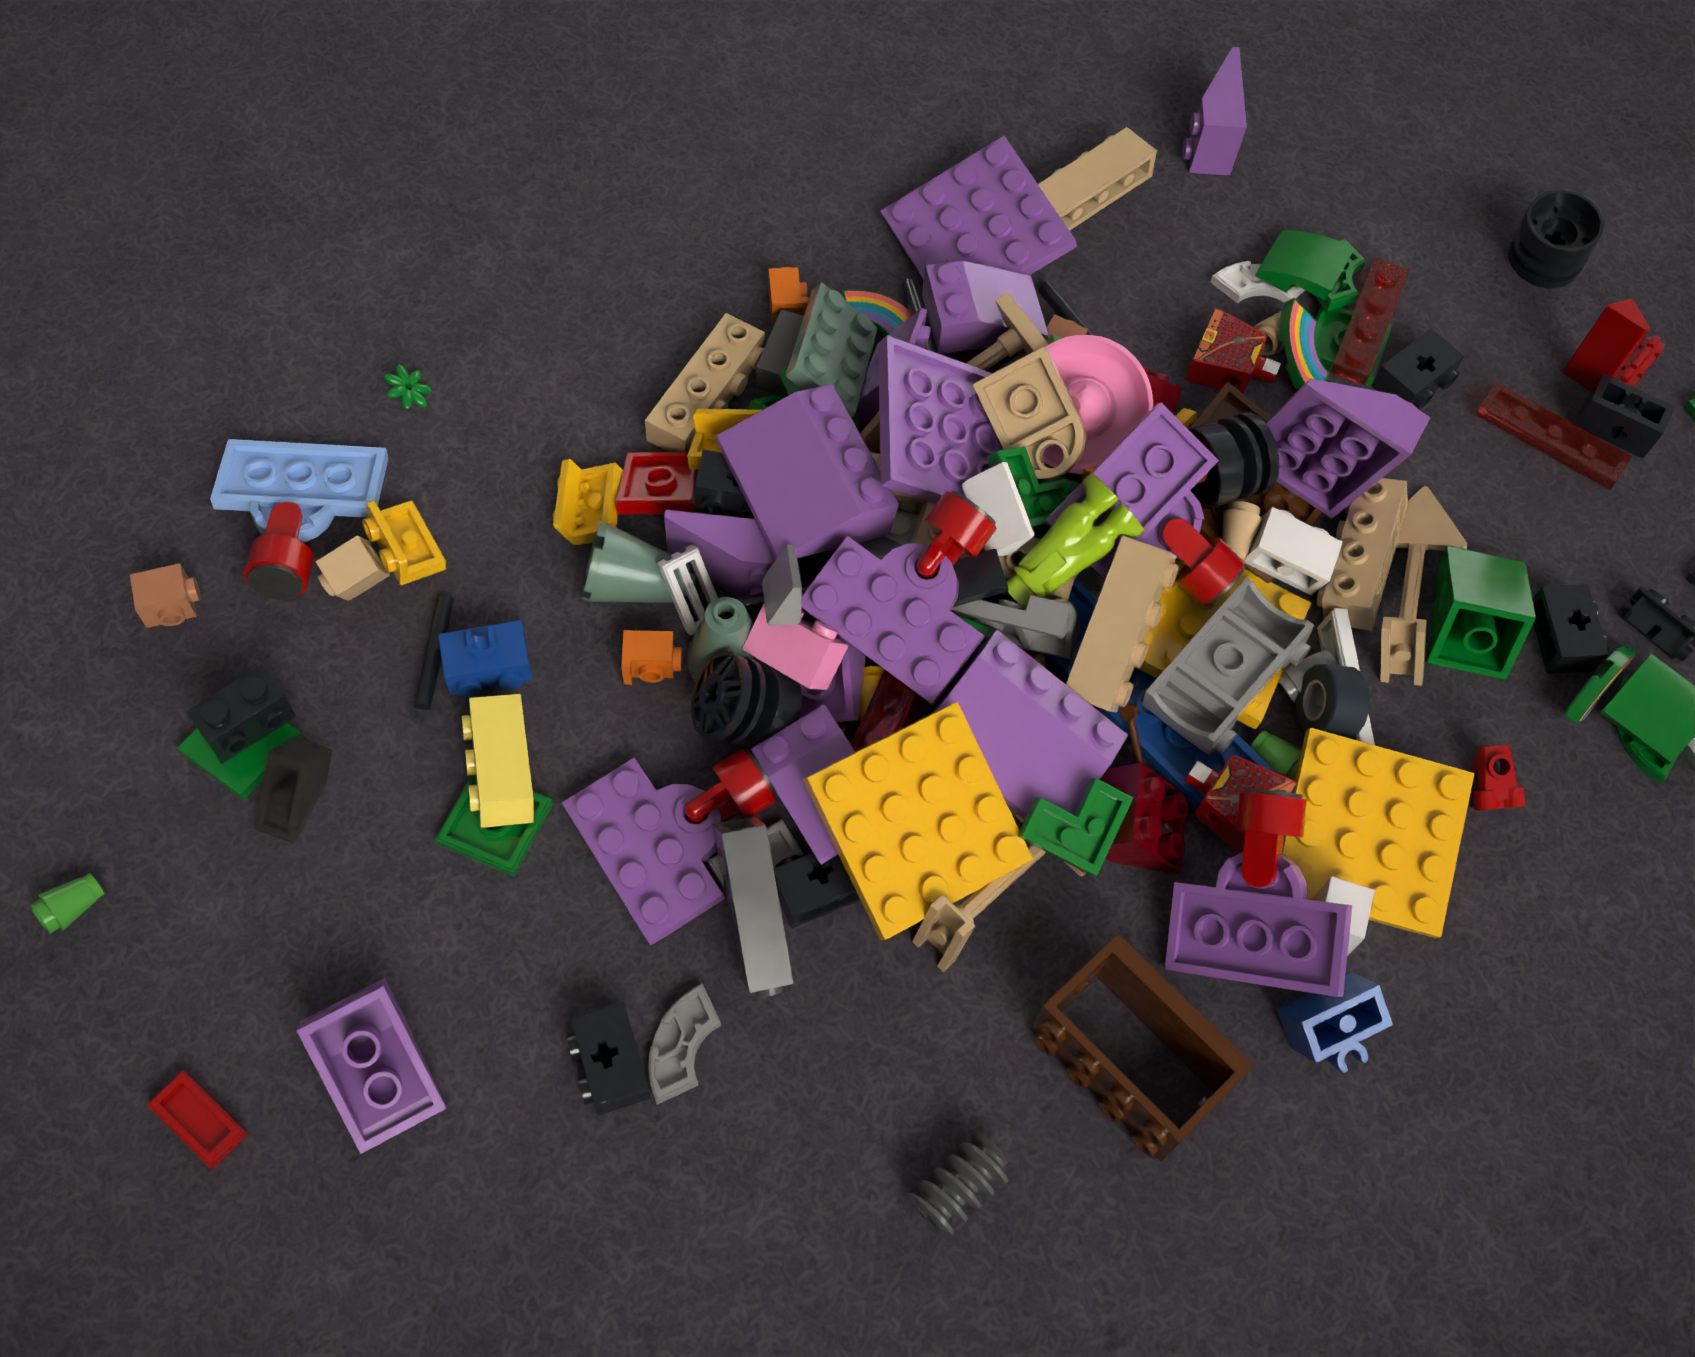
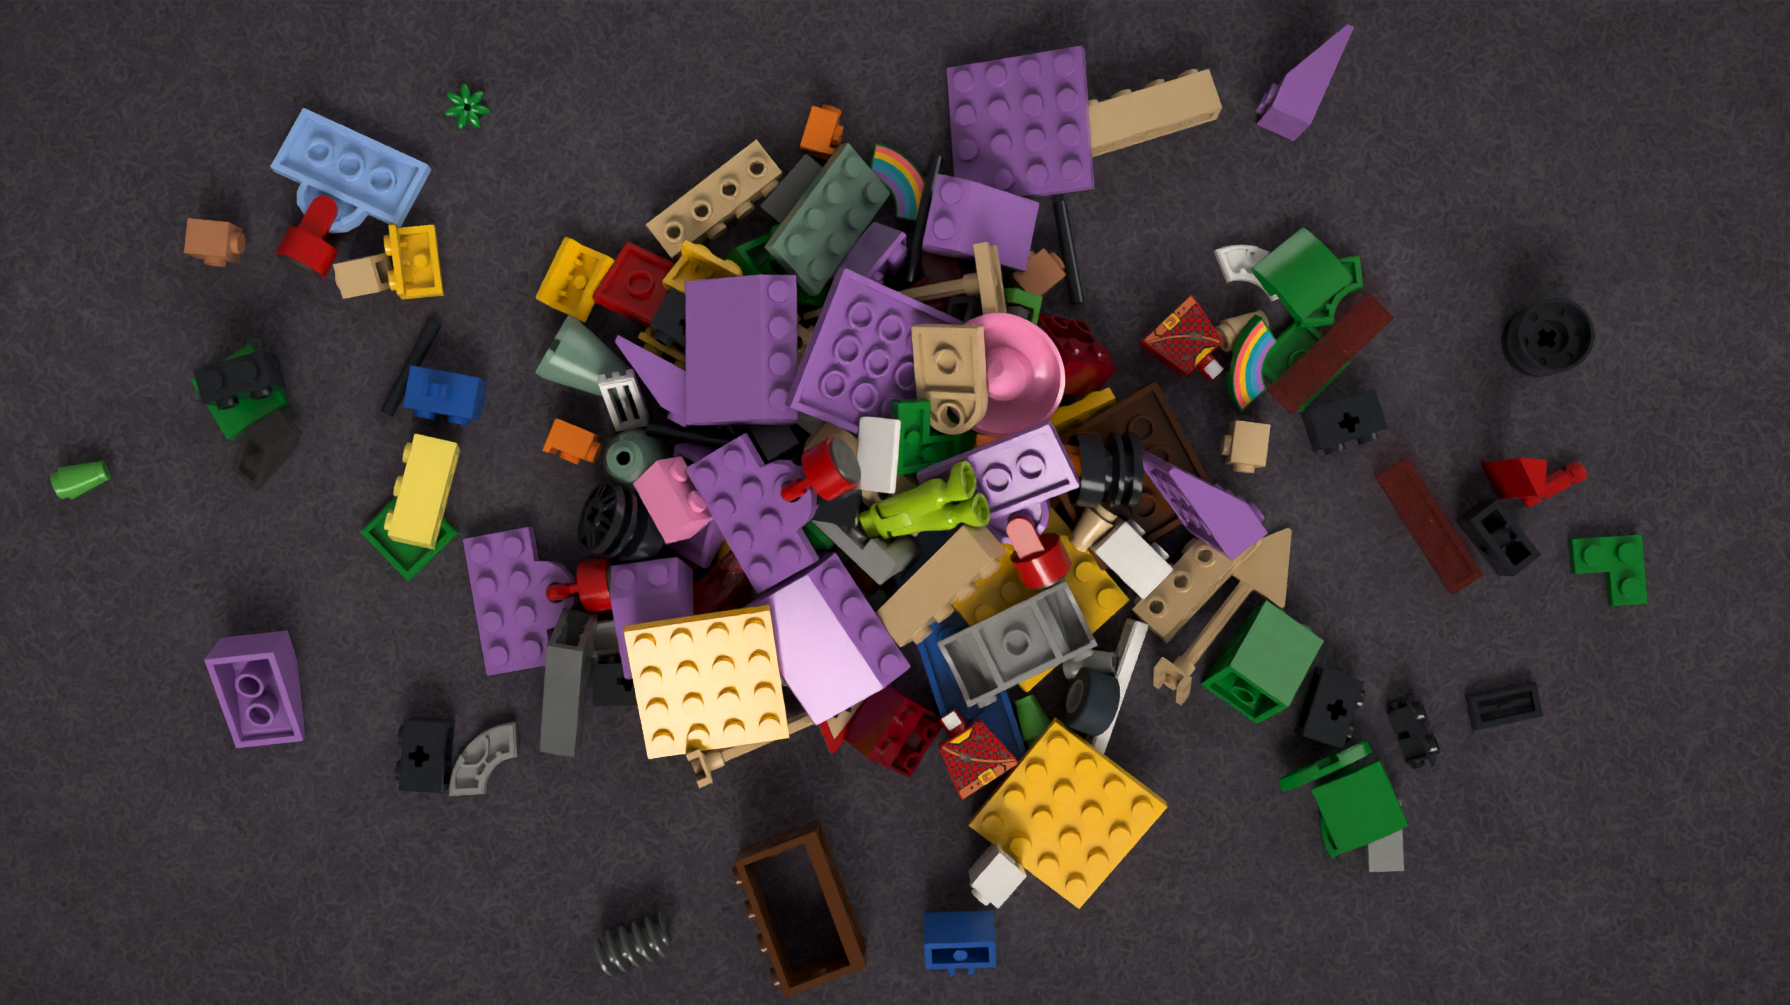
camera: 30 degrees right, 25 degrees up
(197, 1119) = (132, 678): red tile -> none
(783, 589) = (674, 459): light grey slope -> none
(1082, 837) = (832, 737): green plate -> none
(1129, 714) = (924, 646): reddish brown hinge -> none
(1259, 915) = (931, 850): medium lavender plate -> none
(1496, 789) = (1193, 808): red plate -> none

